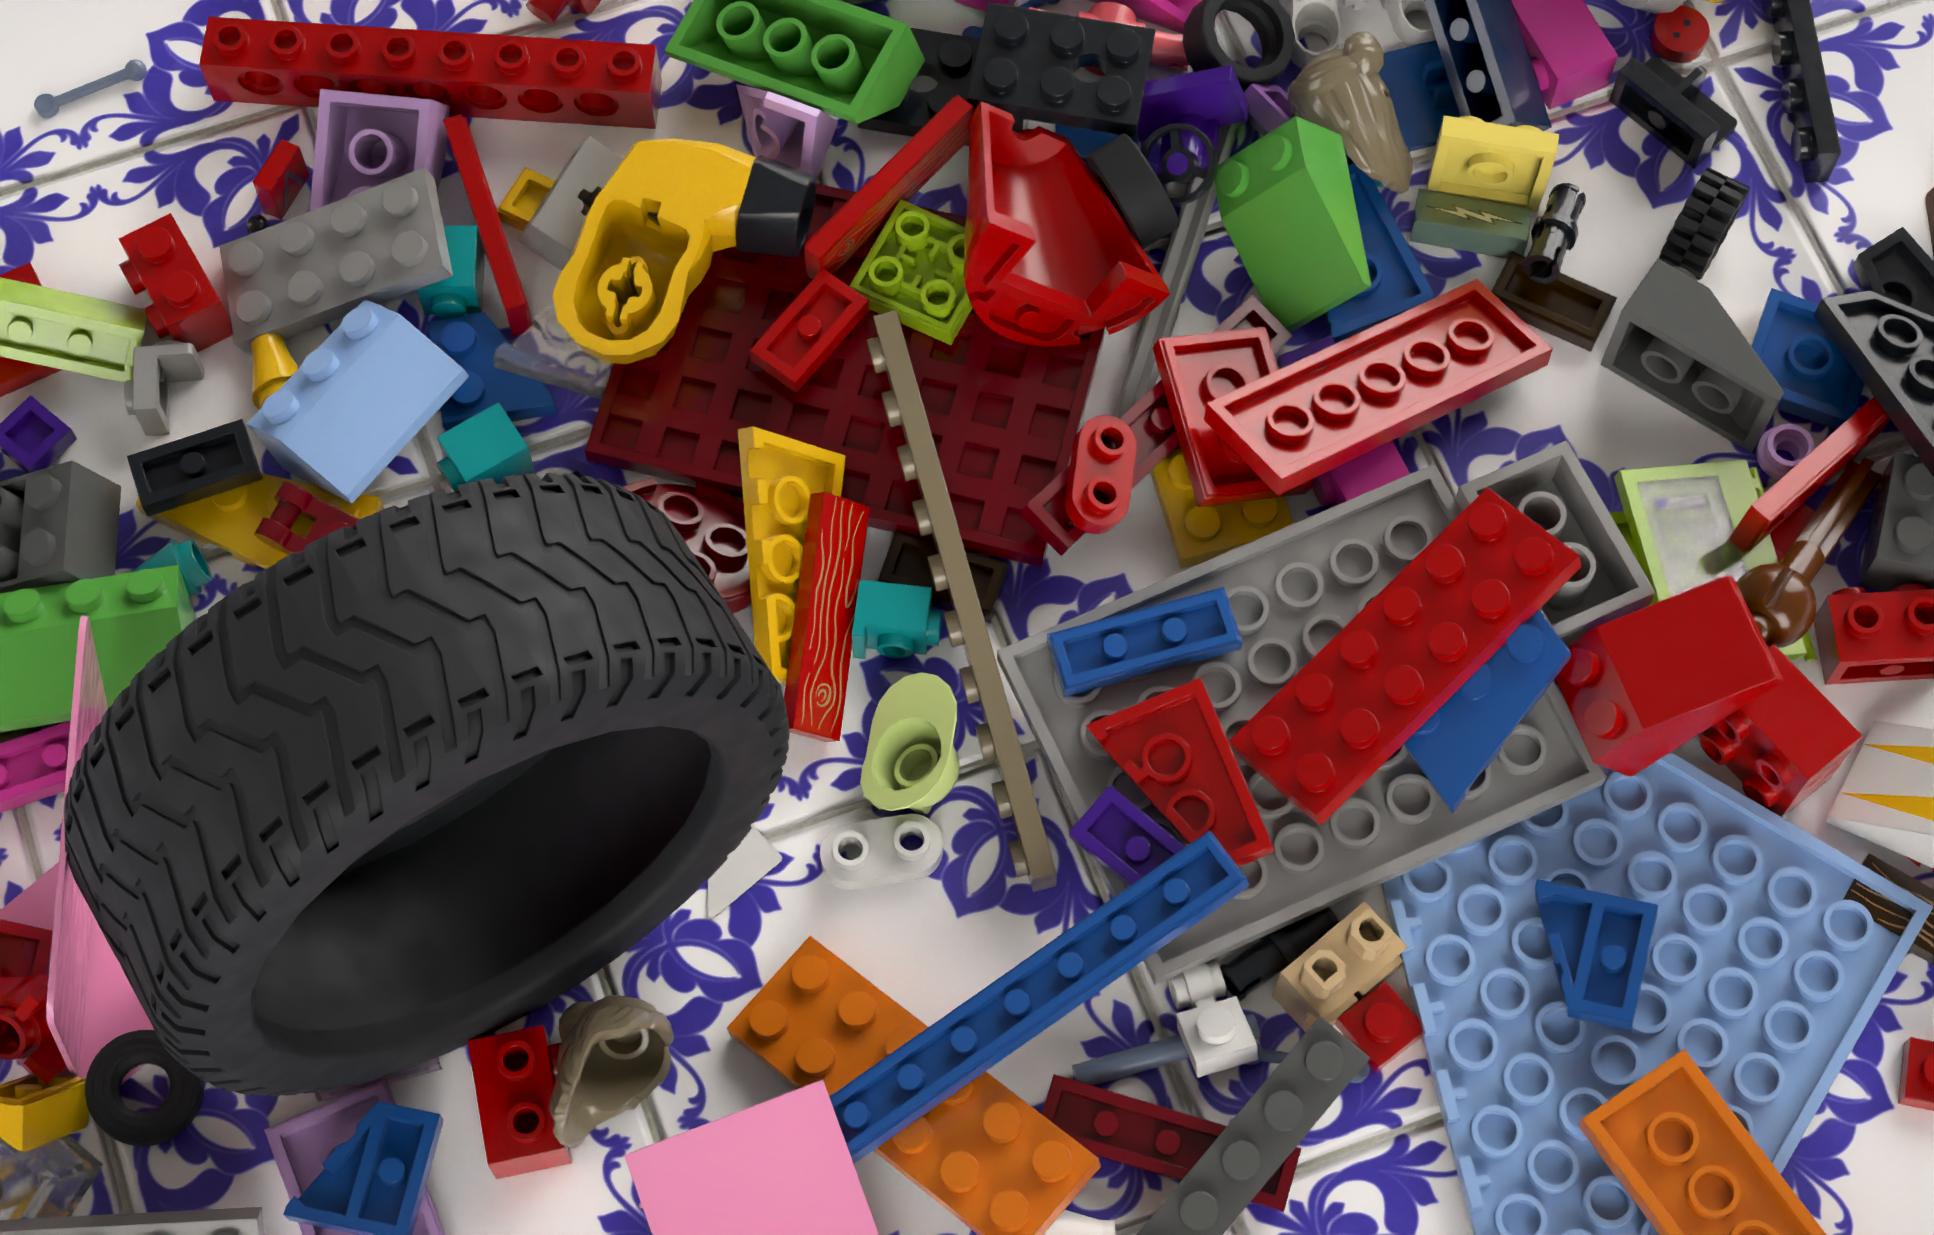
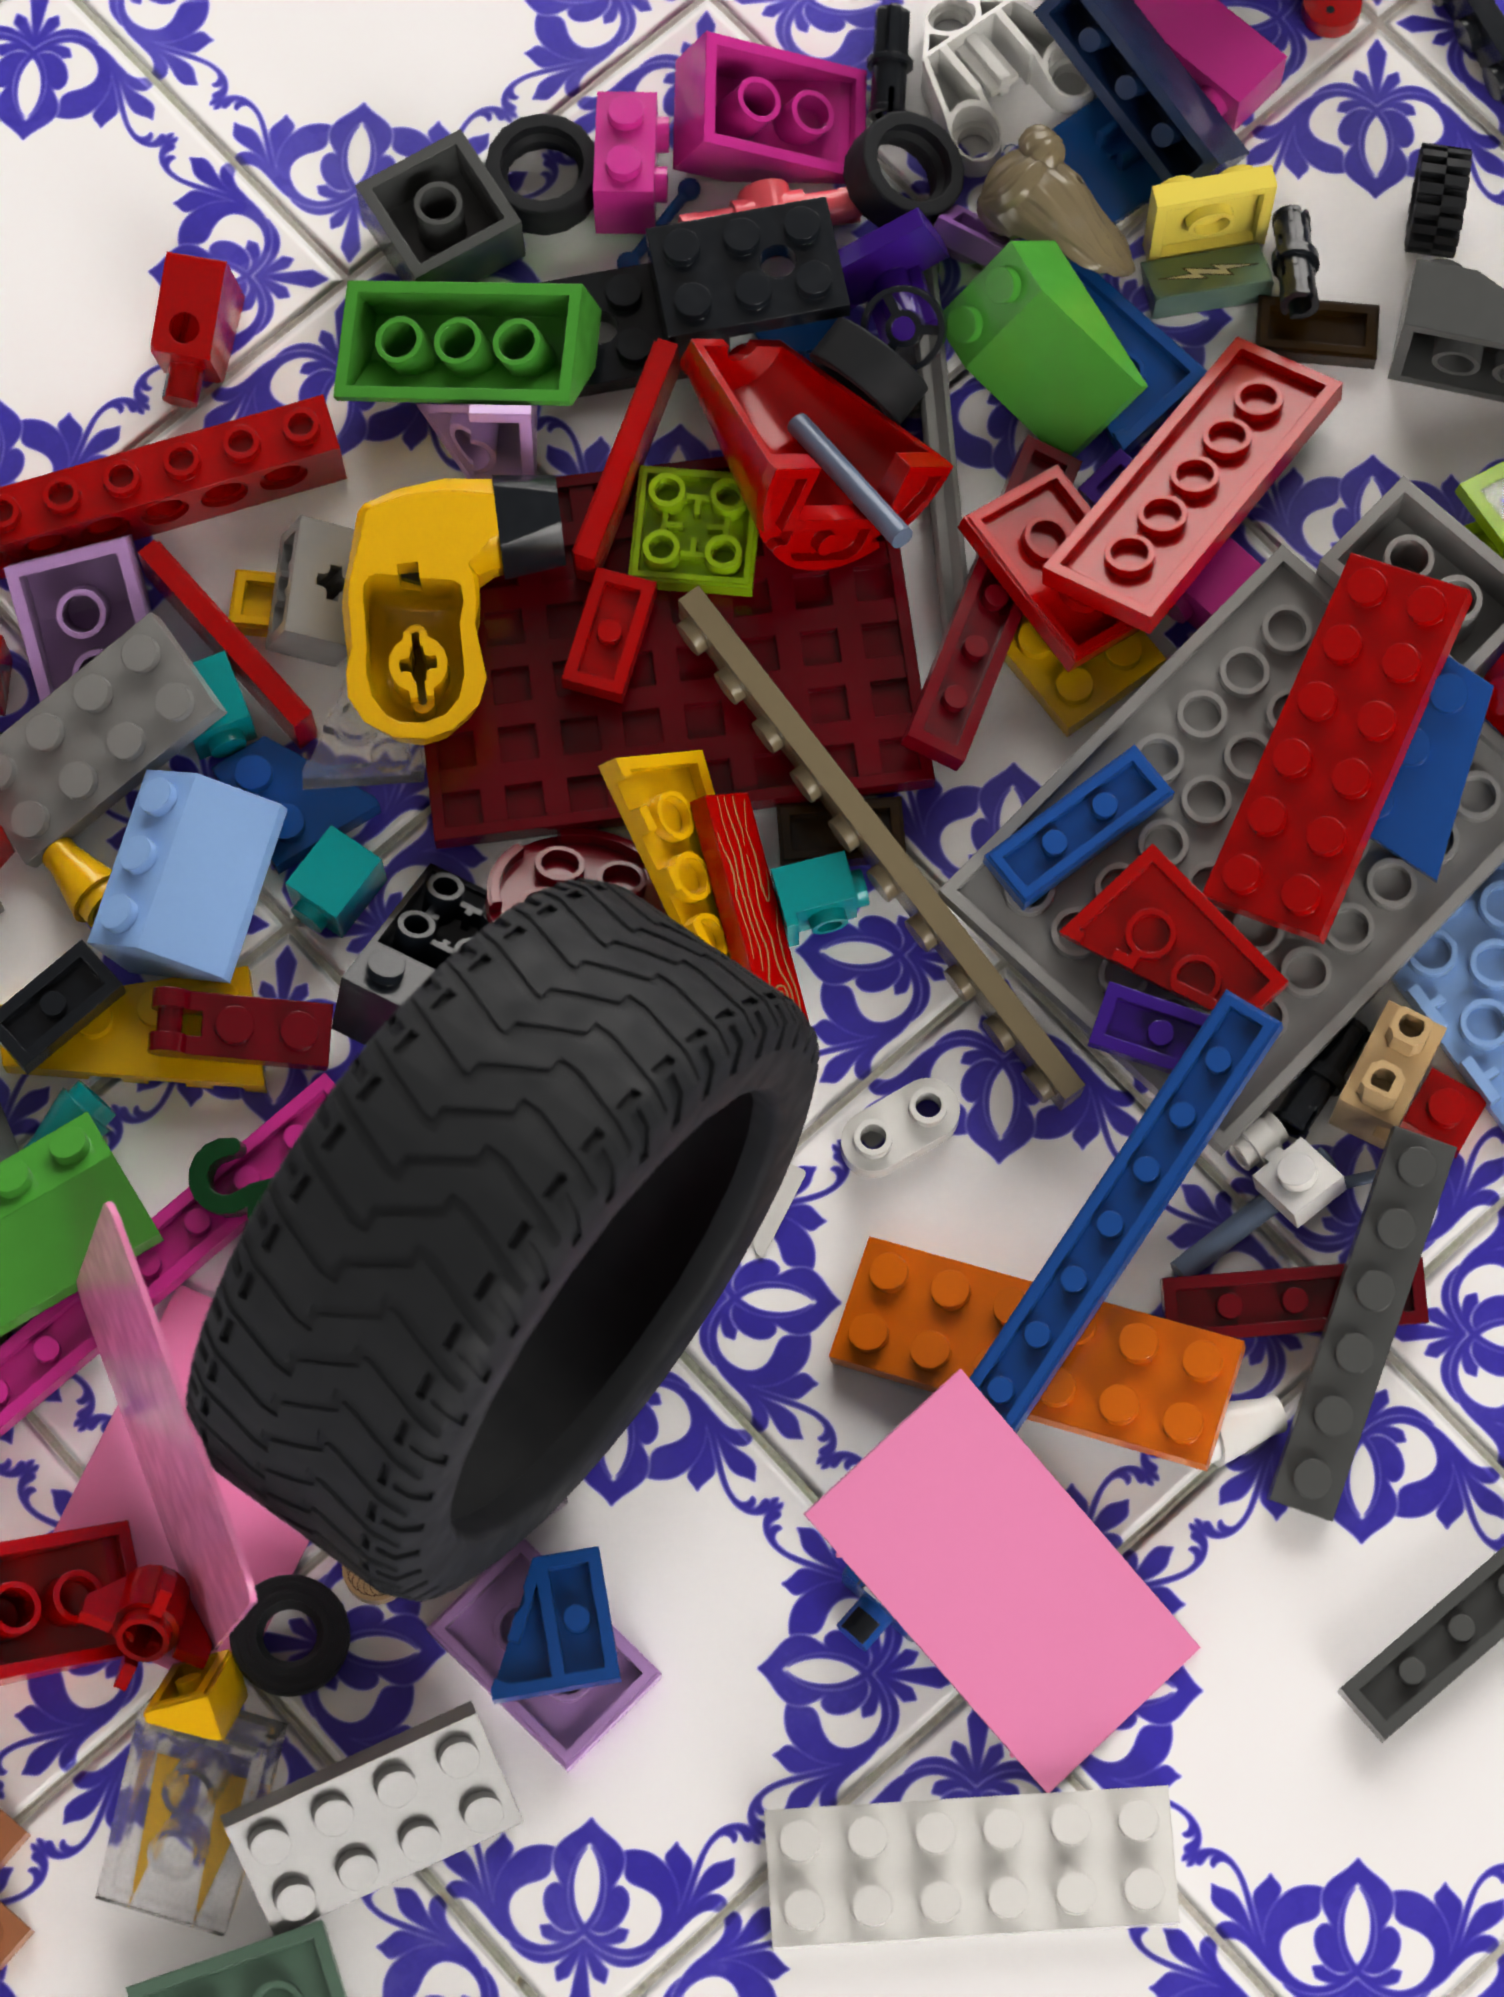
camera: 20 degrees left, 5 degrees up
(513, 1093) = (665, 1502): red brick -> none
(606, 1063) = (734, 1430): dark tan hair -> none
(911, 746) = (890, 1012): yellowish green piece -> none
(1073, 274) = (850, 480): none -> sand blue bar
(1100, 469) = (964, 671): red plate -> none
(1672, 108) = (1355, 88): black panel -> none

